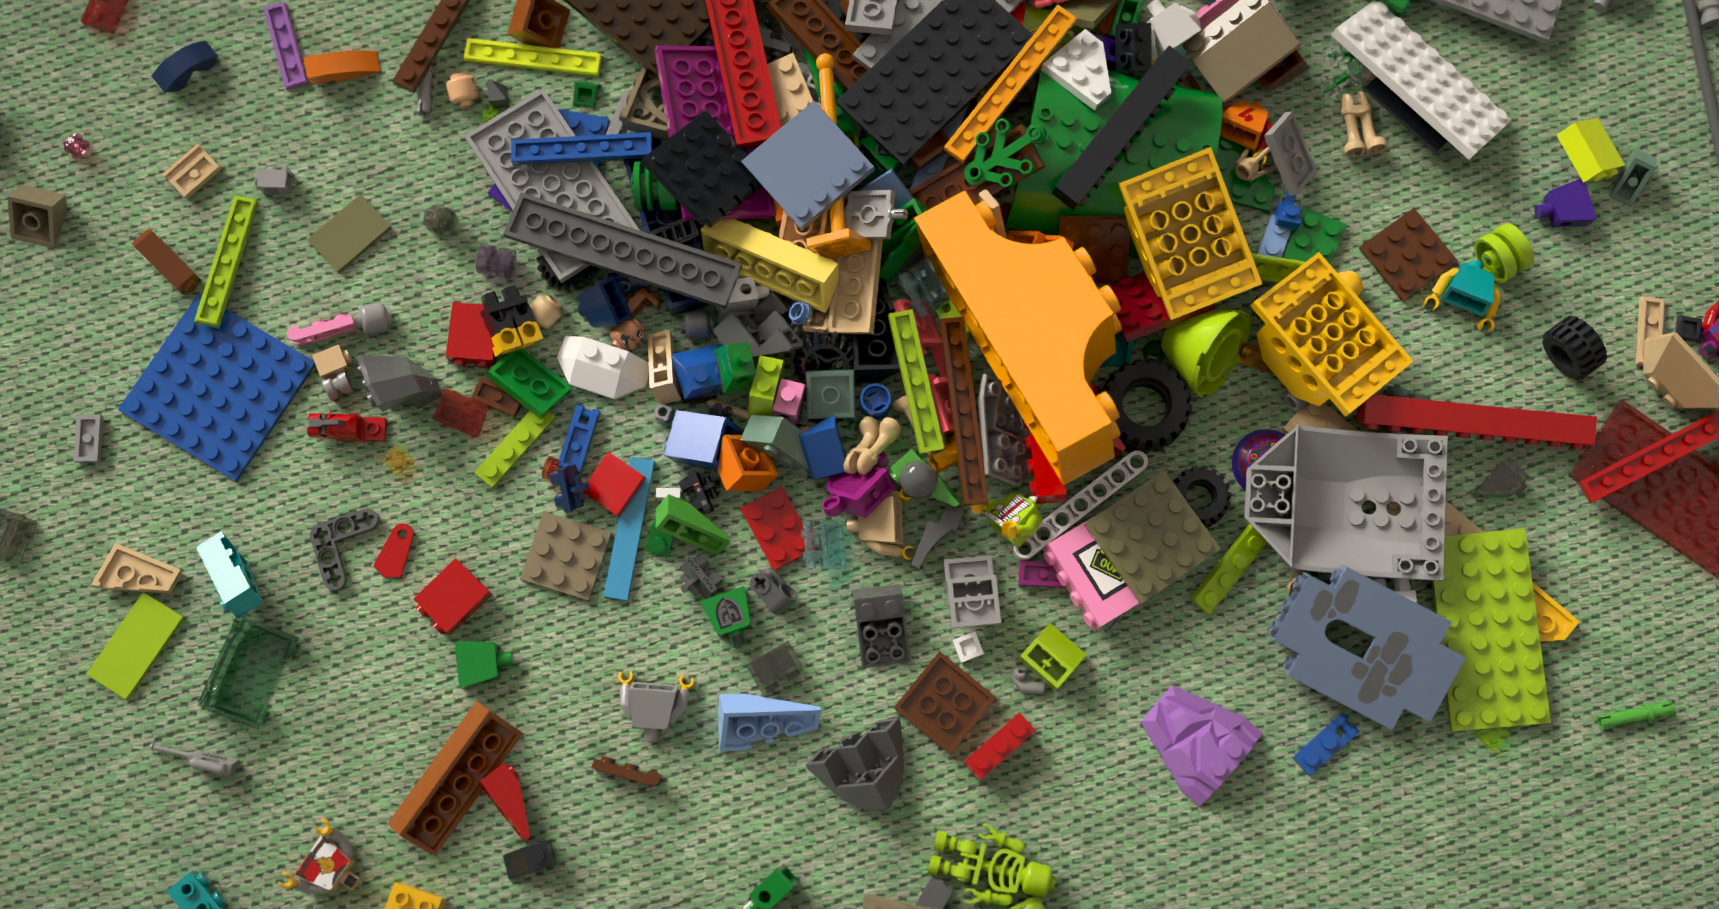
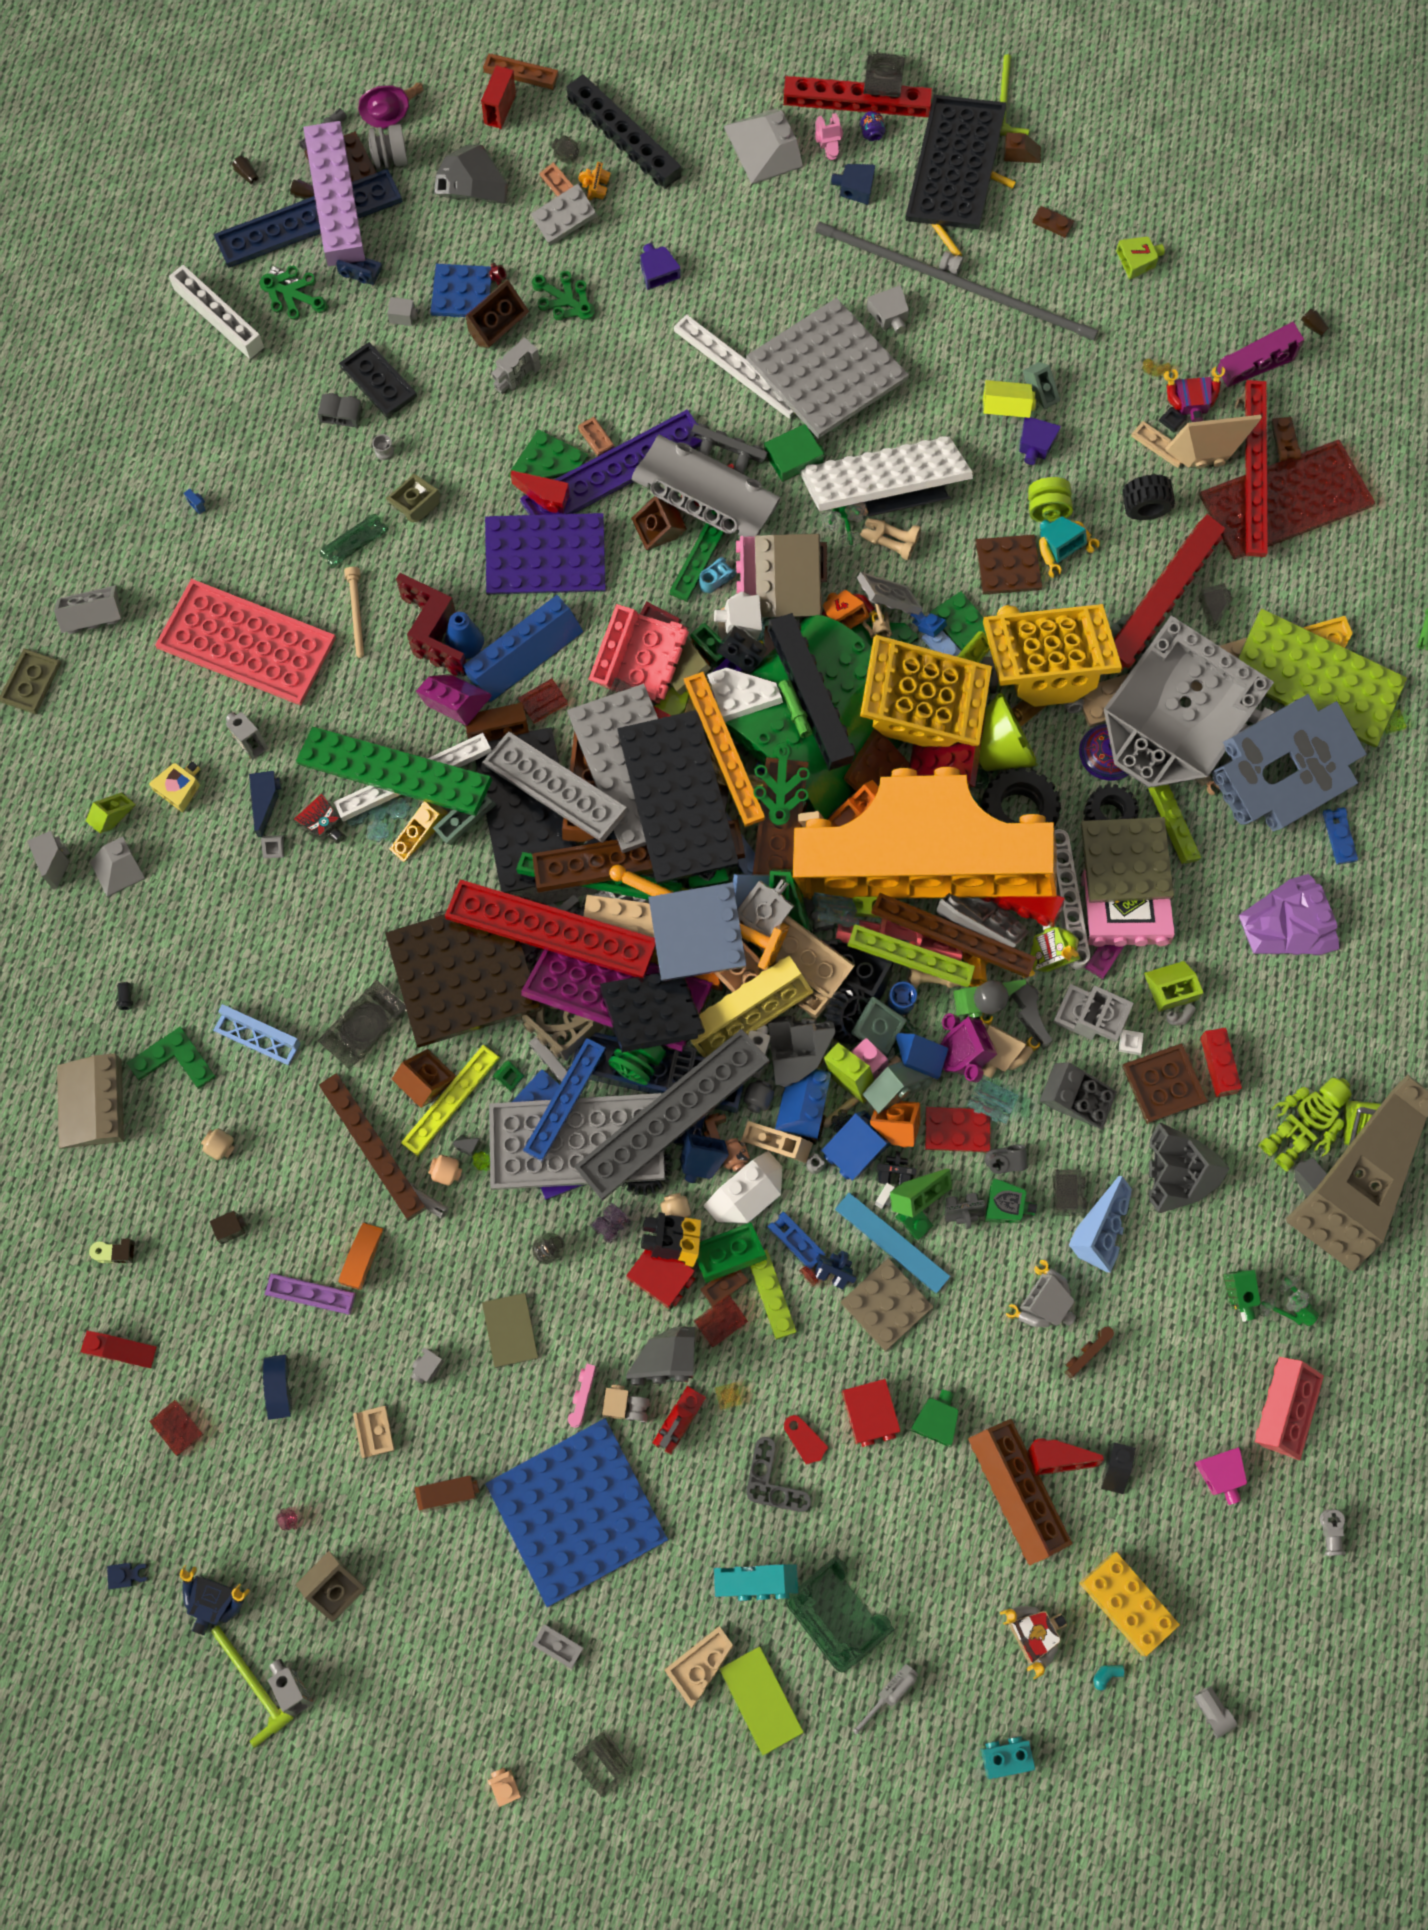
camera: 60 degrees left, 5 degrees down
(226, 262) = (473, 1444): lime tile -> none
(374, 318) = (598, 1348): light grey head -> none
(614, 484) = (851, 1232): red tile -> none
(735, 364) = (821, 1079): green torso -> none
(800, 313) = (797, 1012): medium blue plate -> none
(874, 442) = (921, 1015): tan piece -> none
(1088, 131) = (799, 716): none -> bright green pin

